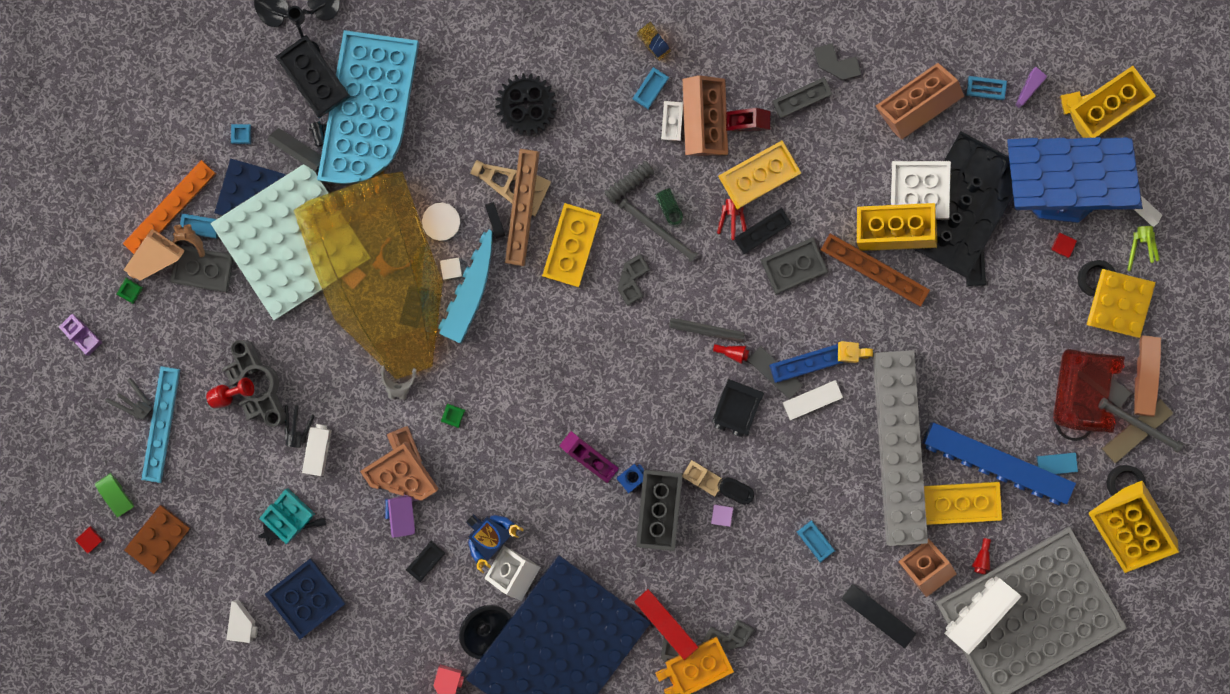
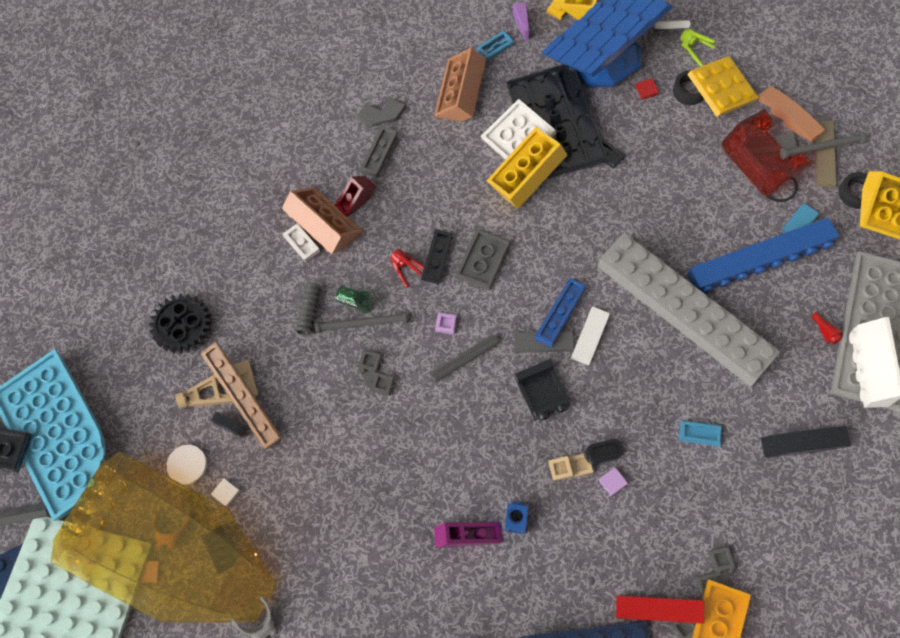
camera: 40 degrees left, 20 degrees down
(318, 133) = (24, 484): black pin -> none
(453, 415) = (328, 607): green tile -> none
(469, 293) = (257, 498): medium azure slope -> none
(571, 245) = (305, 390): yellow plate -> none
(650, 88) = (265, 236): dark azure tile -> none
(653, 41) = (238, 204): leg -> none
(659, 510) = (562, 520): dark grey slope -> none
(719, 290) = (446, 323): none -> lavender tile
(737, 353) = (502, 353): red cone -> none
(759, 174) = (397, 221): yellow tile -> none
(851, 353) = (582, 278): yellow plate -> none
(875, 270) = (541, 211): dark orange plate -> none
(927, 568) = (799, 372): nougat slope -> none
(962, 503) = (771, 303): yellow plate -> none

